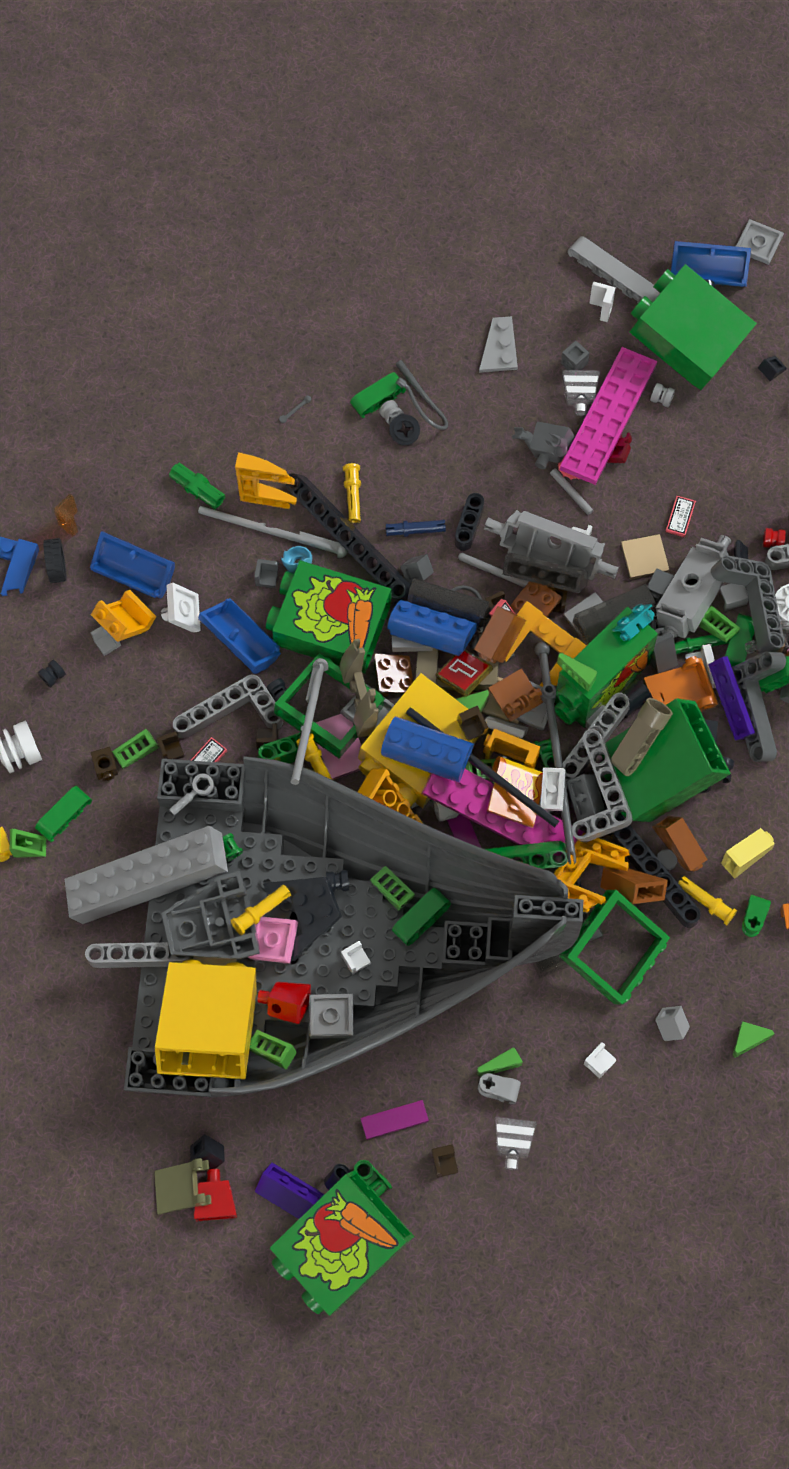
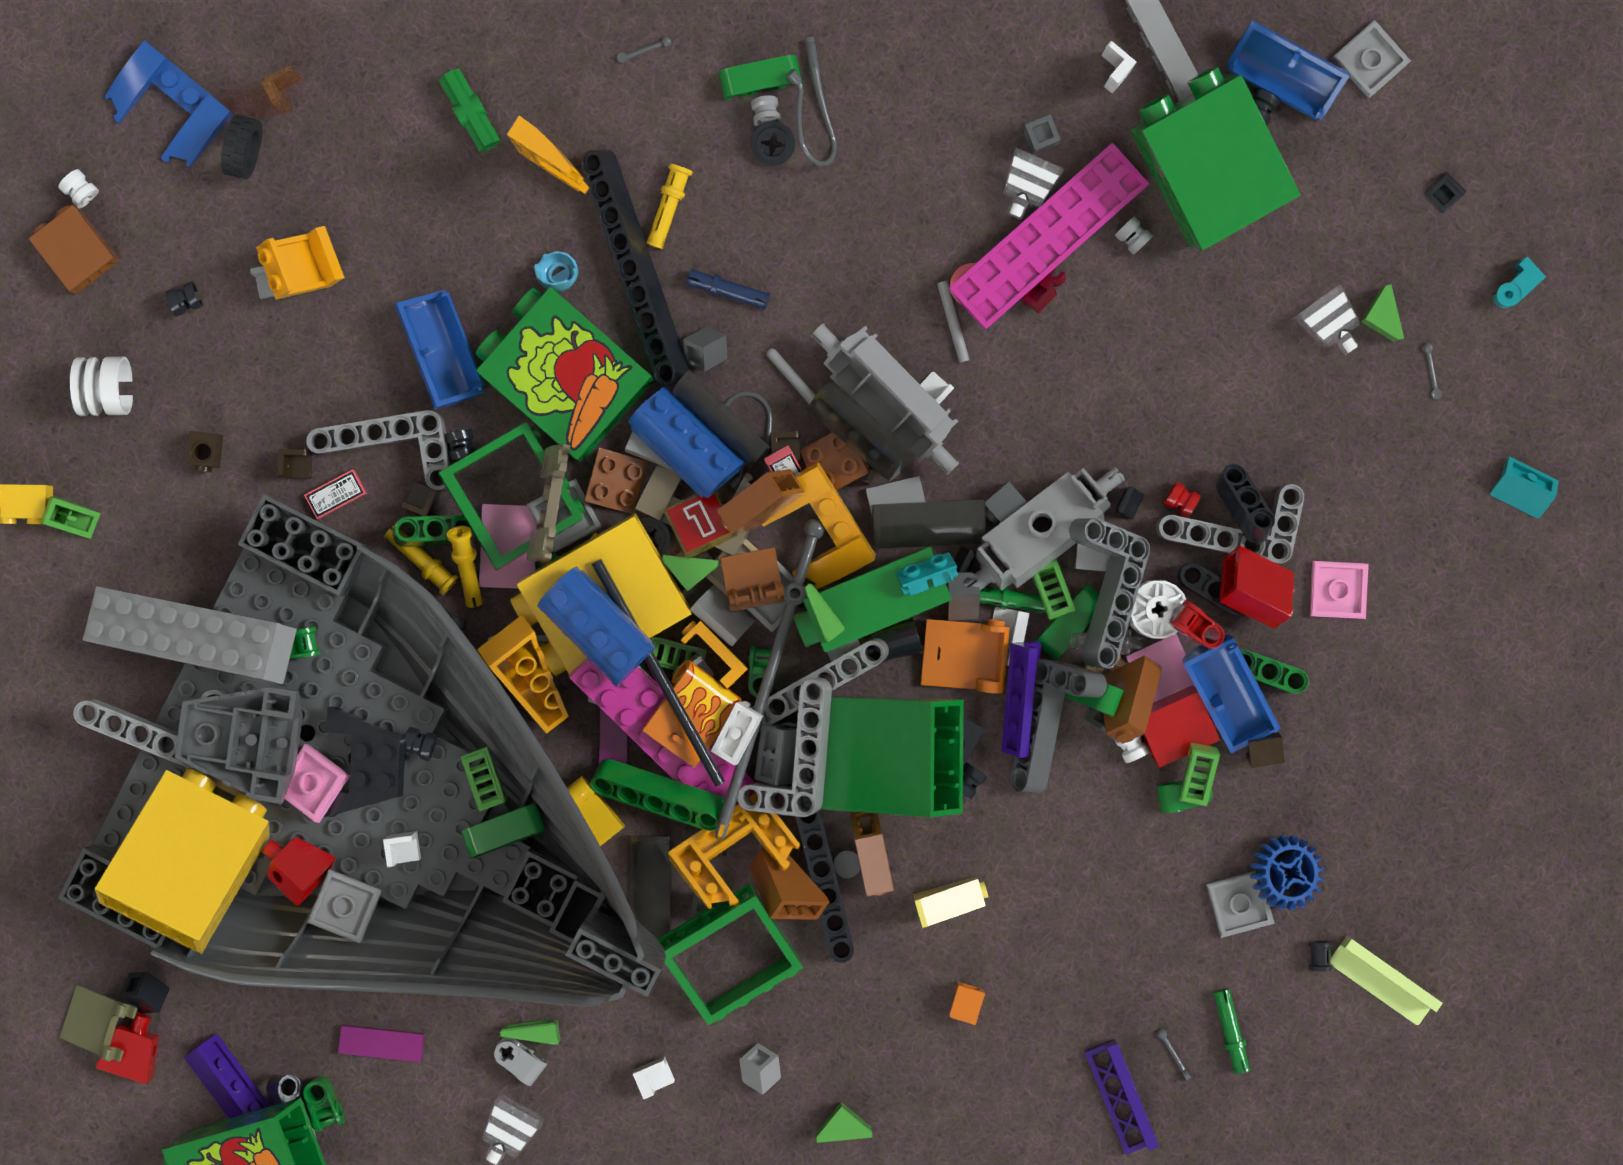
camera: 25 degrees right, 20 degrees up
(65, 810) = (129, 493): green beam -> none
(132, 565) = (339, 193): blue container -> none
(138, 754) = (275, 440): bright green slope -> none
(182, 608) = (381, 281): white tile -> none
(188, 797) = (274, 563): light grey piece -> none
(253, 914) = (293, 751): yellow pin -> none
(266, 573) = (508, 275): dark grey panel -> none
(283, 1055) = (270, 935): bright green slope -> none
(304, 538) = (577, 242): light grey bar -> none
(319, 666) = (515, 444): light grey bar -> none
(444, 1160) = (418, 1117): dark brown panel -> none
(469, 513) = (804, 298): black beam -> none
(472, 723) = (669, 612): dark brown panel -> none
(500, 347) = (952, 72): light grey wing -> none
(547, 443) = (949, 243): dark grey torso -> none
(641, 735) = (885, 716): dark tan beam -> none
(644, 556) = (1005, 453): tan tile -> none
(680, 516) = (1077, 416): tile -> none
(714, 905) = (878, 946): yellow pin -> none
(756, 913) = (925, 976): green piece -> none
(772, 367) = (1298, 254): black slope -> none

